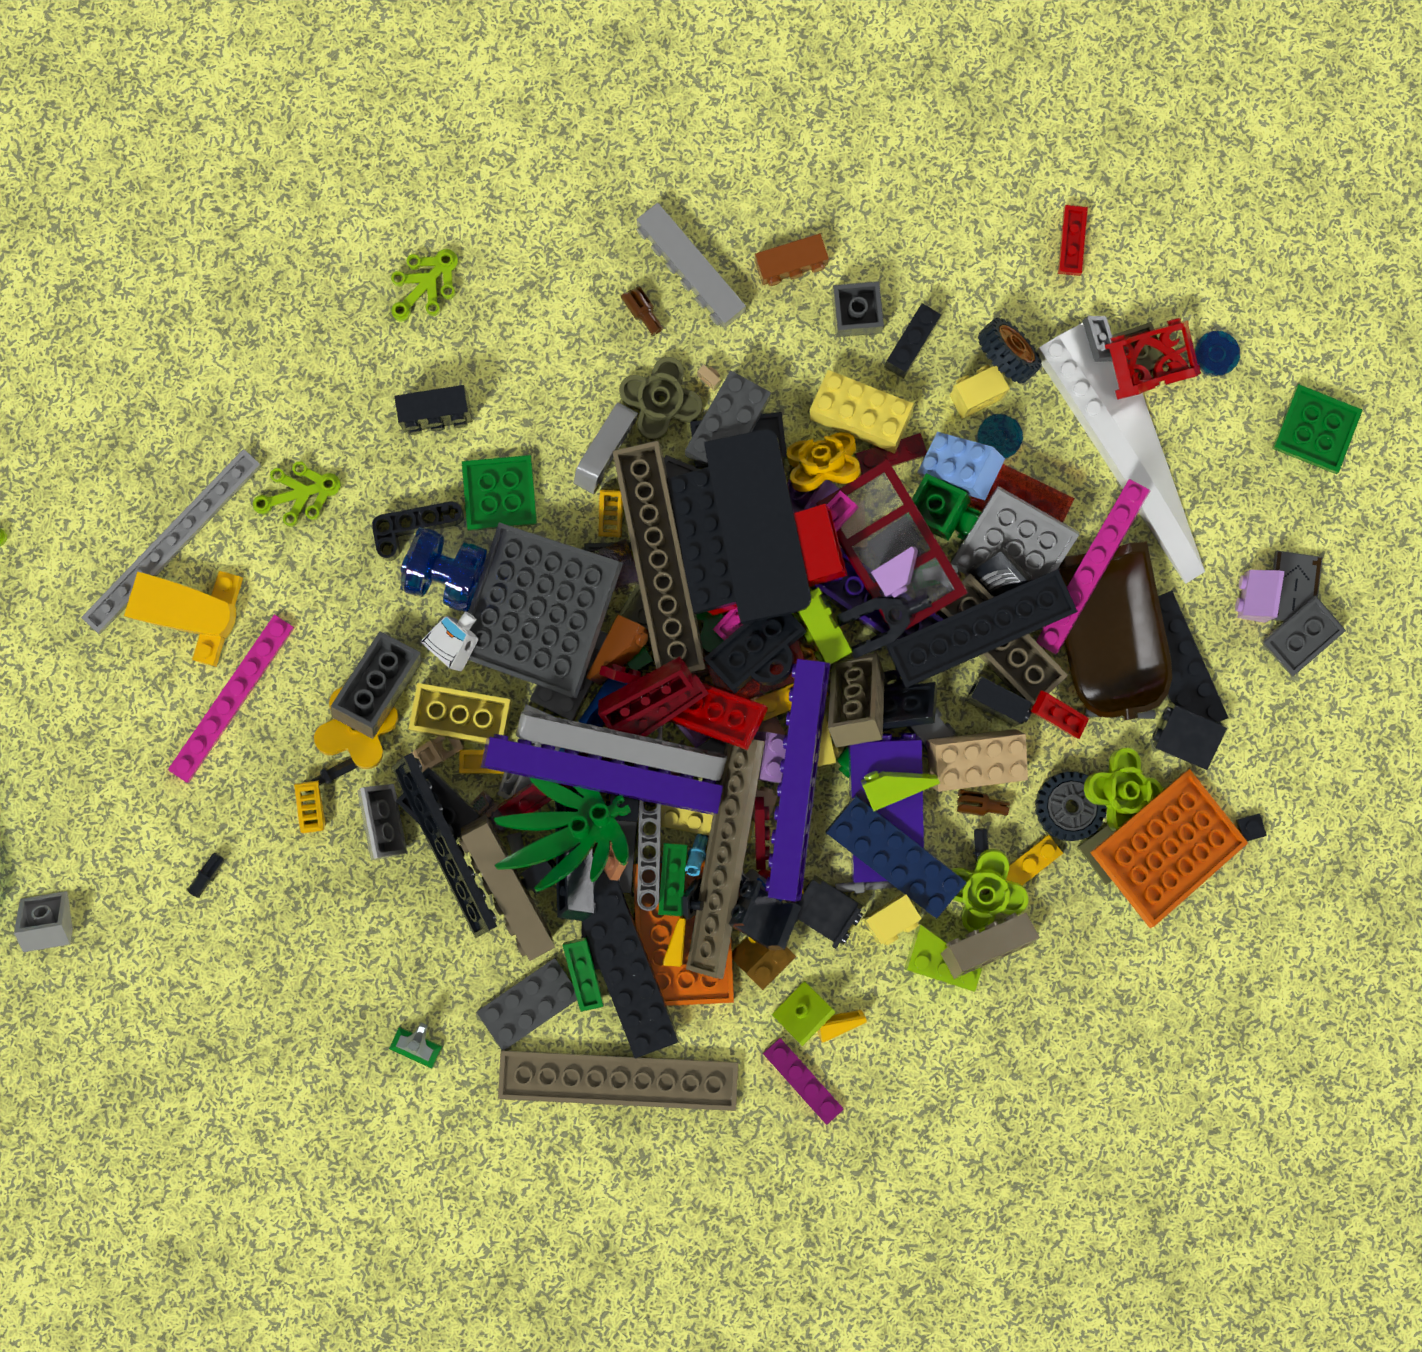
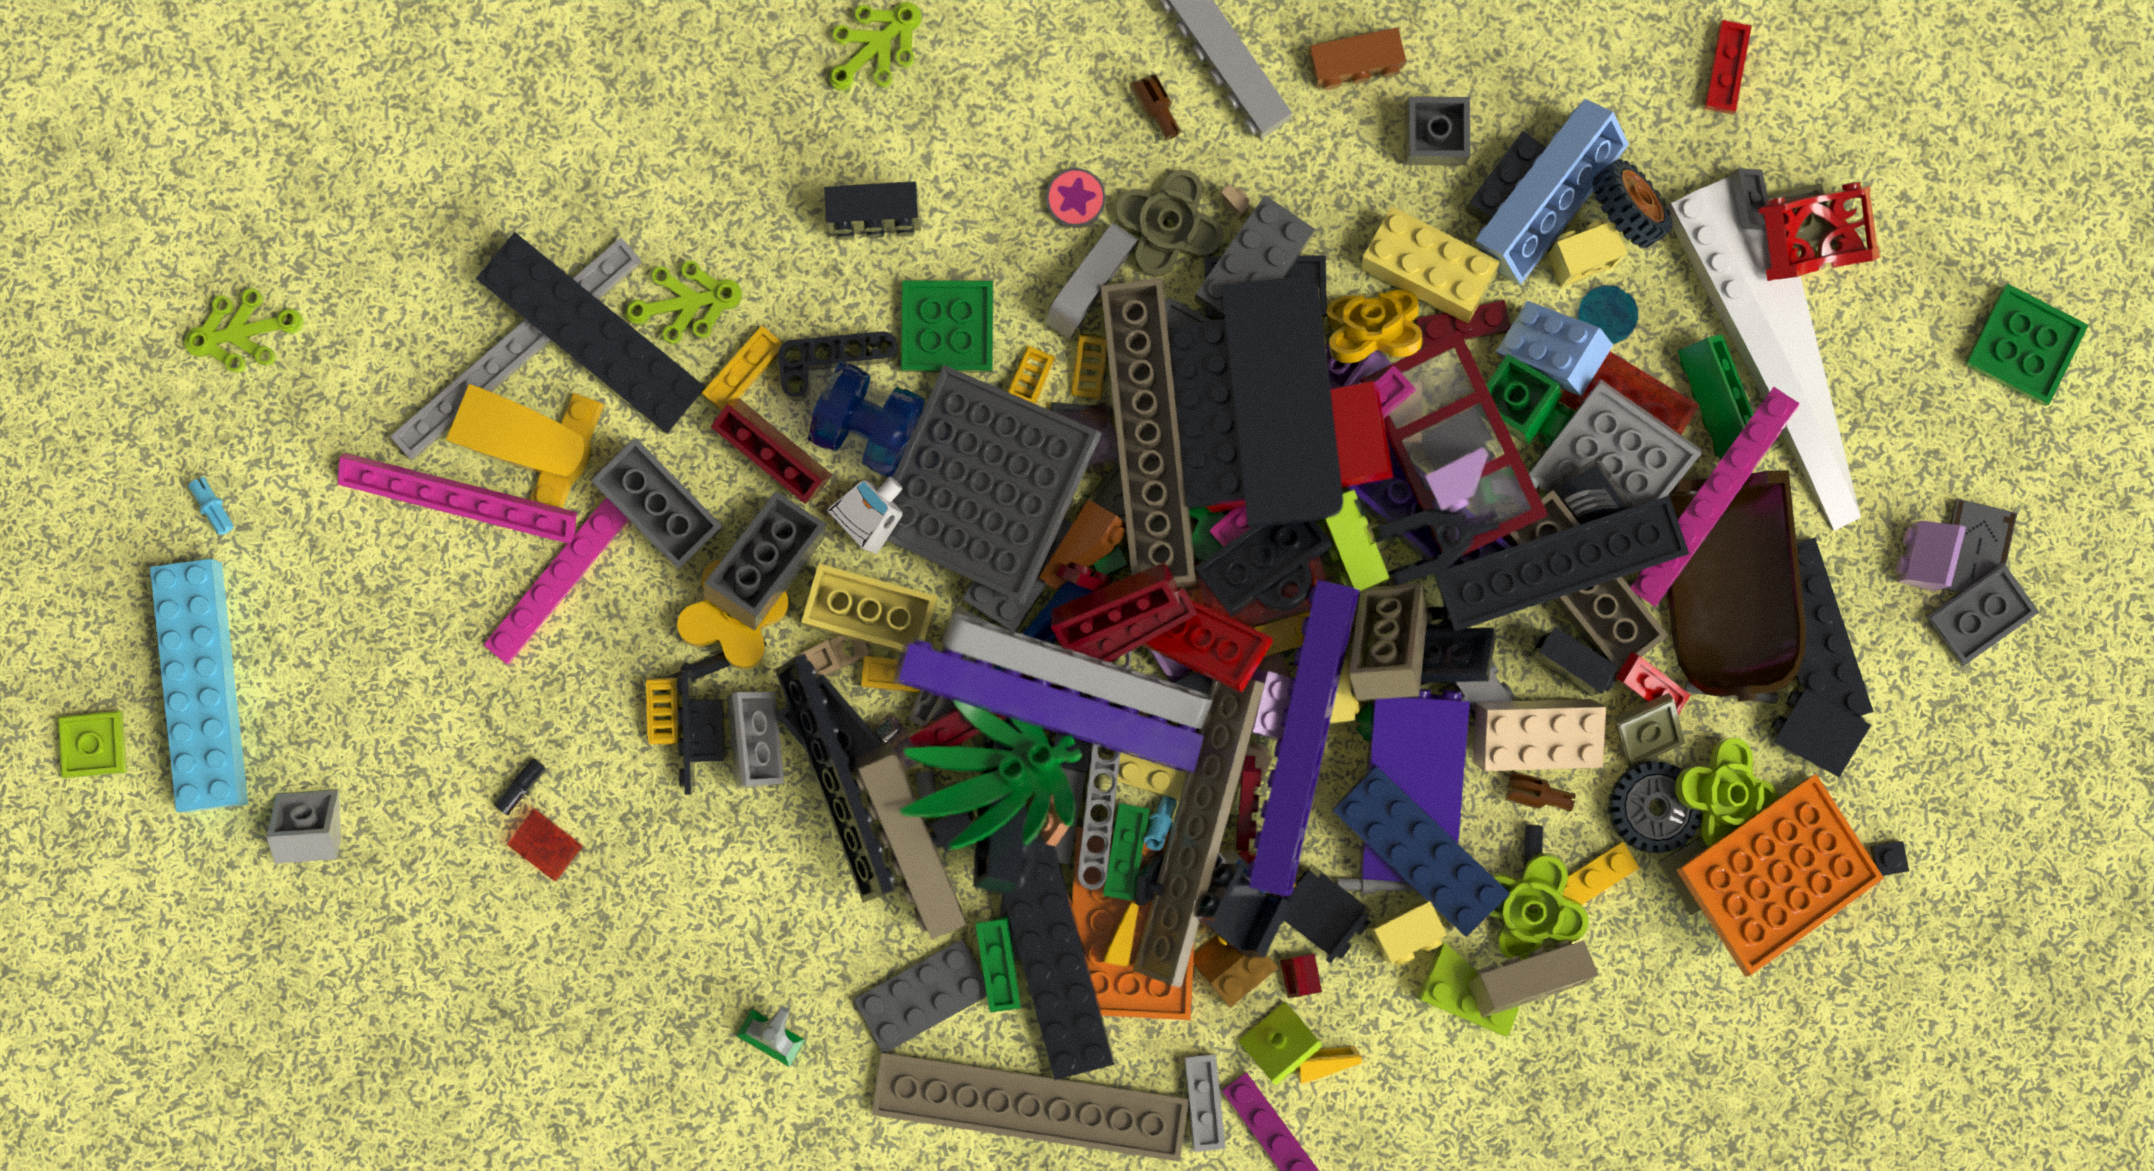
camera: 10 degrees right, 0 degrees up
(136, 659) = (457, 498): none -> dark pink plate
(227, 523) = (590, 332): none -> black plate
(229, 917) = (545, 845): none -> clear red plate
(288, 648) = (656, 502): none -> dark grey brick
(340, 819) = (702, 730): none -> black bracket
(346, 541) = (743, 368): none -> yellow plate
(373, 600) = (771, 450): none -> dark red brick
(555, 535) = (1021, 391): none -> yellow slope
(588, 386) = (1075, 198): none -> tile
(750, 1064) = (1204, 1102): none -> light grey plate
(814, 960) = (1301, 975): none -> dark red piece
(890, 787) = (1423, 759): lime slope -> none
(948, 346) = (1552, 190): none -> light blue brick
(1060, 748) = (1649, 730): none -> olive tile
(1087, 485) = (1716, 390): none -> green brick
(1217, 353) = (1903, 233): clear blue tile -> none

